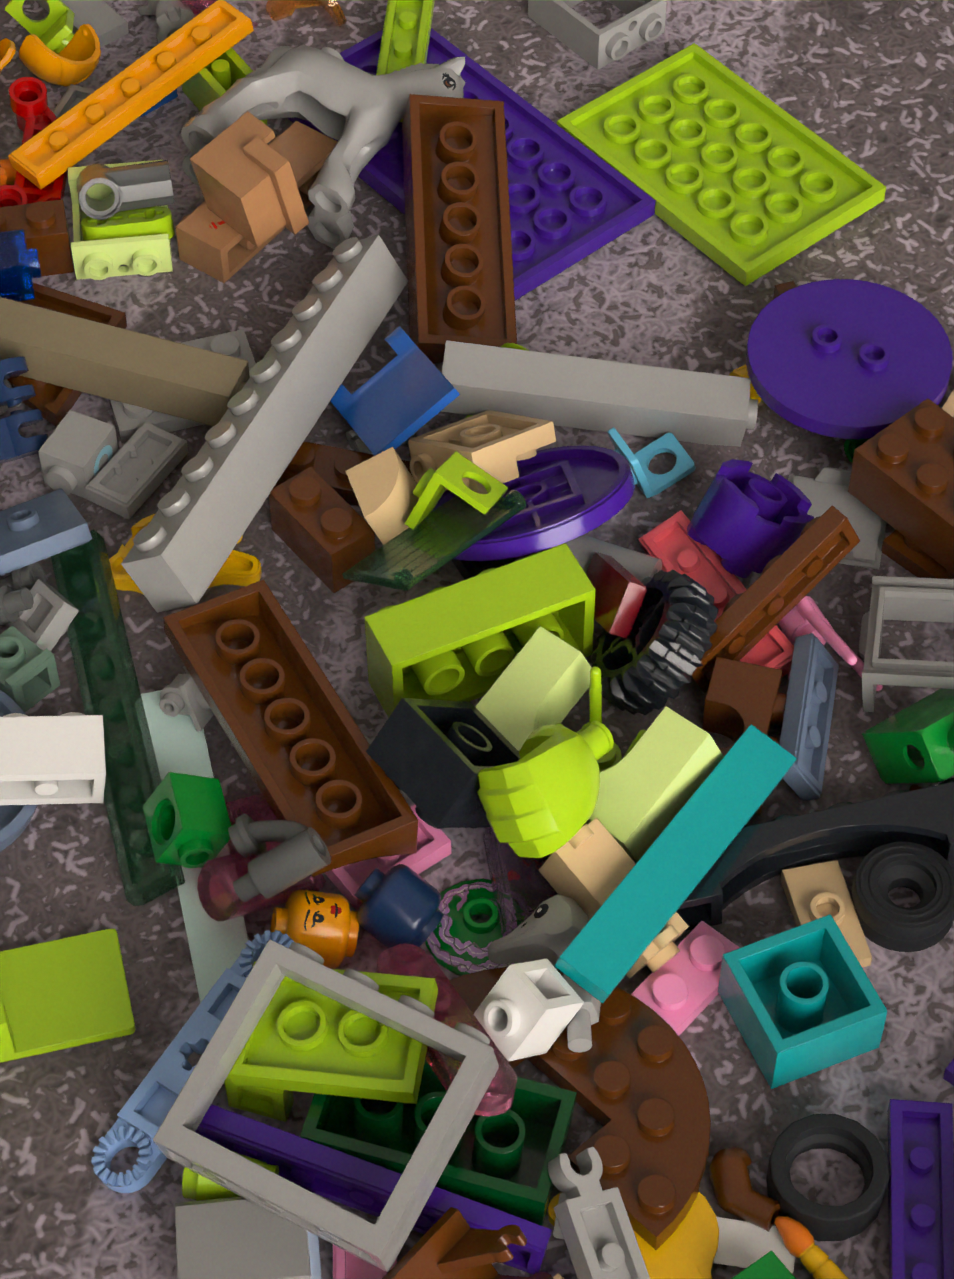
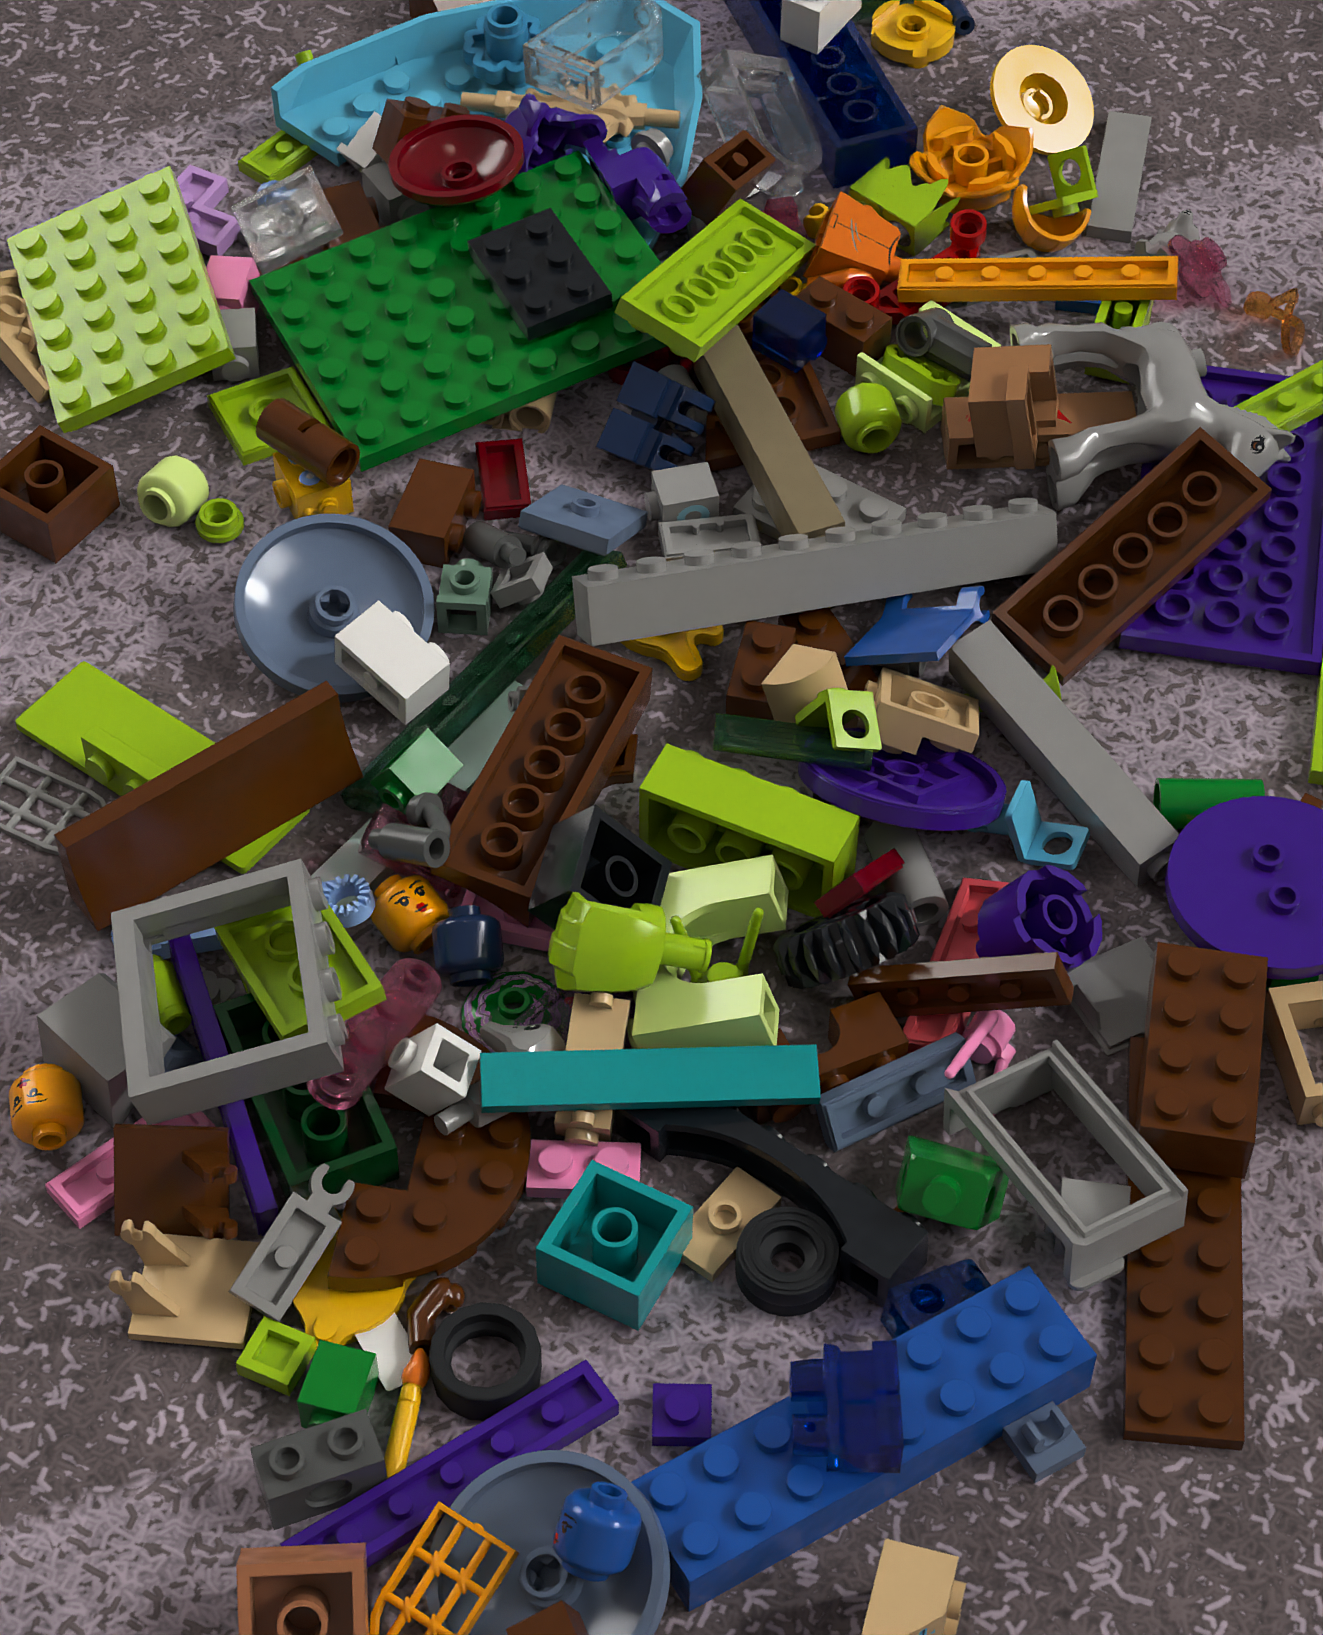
camera: 50 degrees right, 0 degrees up
(69, 1008) = (208, 806): none -> reddish brown arch
(133, 286) = (868, 417): none -> lime head
(720, 344) = (1186, 798): none -> green pin

